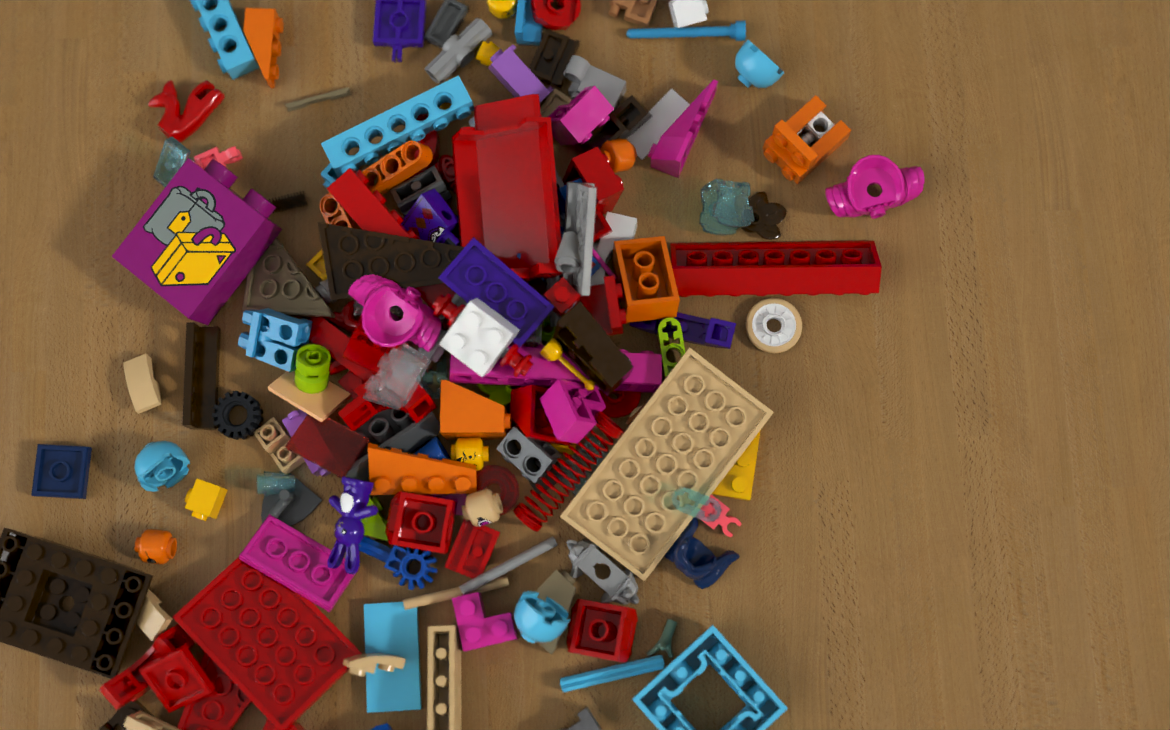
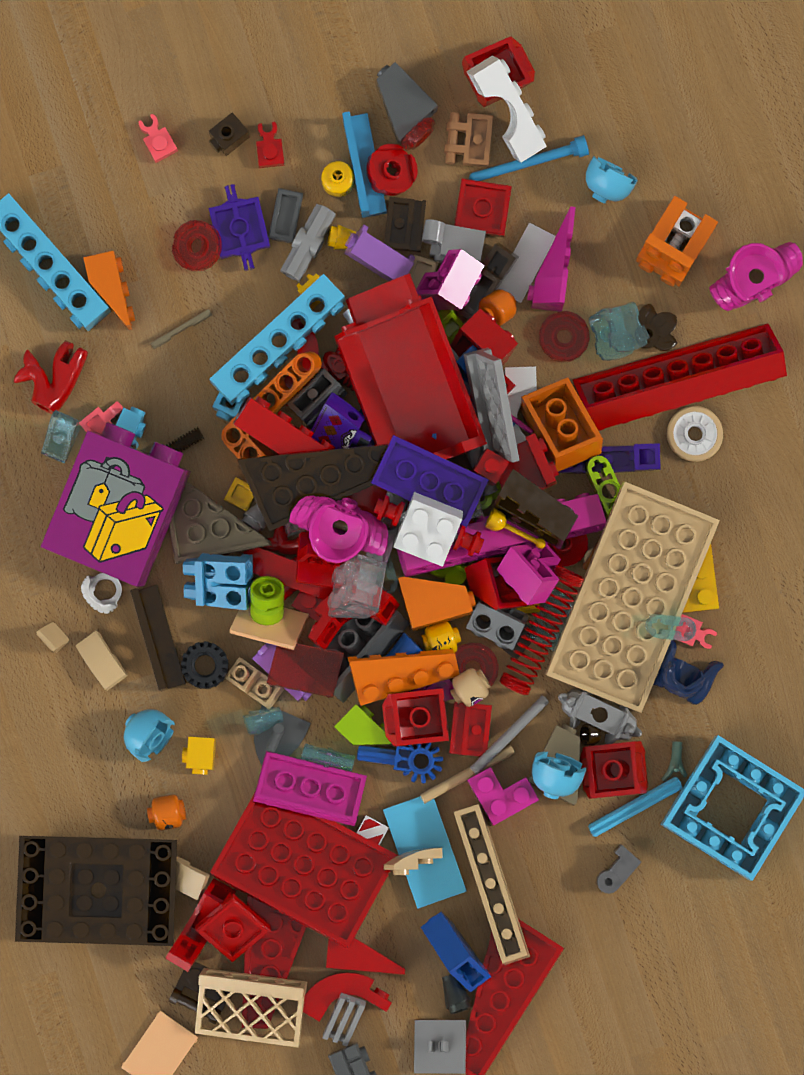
camera: 25 degrees left, 5 degrees up
(61, 471) = (50, 767): dark blue plate -> none
(104, 349) = (53, 637): none -> tan slope
(162, 332) = (88, 588): none -> white piece
(245, 171) = (132, 421): none -> medium azure brick
(321, 534) = (328, 757): none -> clear light blue pin
(347, 622) = (372, 830): none -> tile
(349, 528) = (352, 741): dark purple animal -> none
(365, 31) = (209, 251): none -> clear red tile
(562, 159) = (451, 323): none -> lime slope
(568, 254) = (487, 425): light grey cone -> none
(588, 588) = (590, 734): none -> dark brown hinge
(632, 61) = (483, 206): none -> red plate
(668, 214) = (564, 351): none -> clear red tile

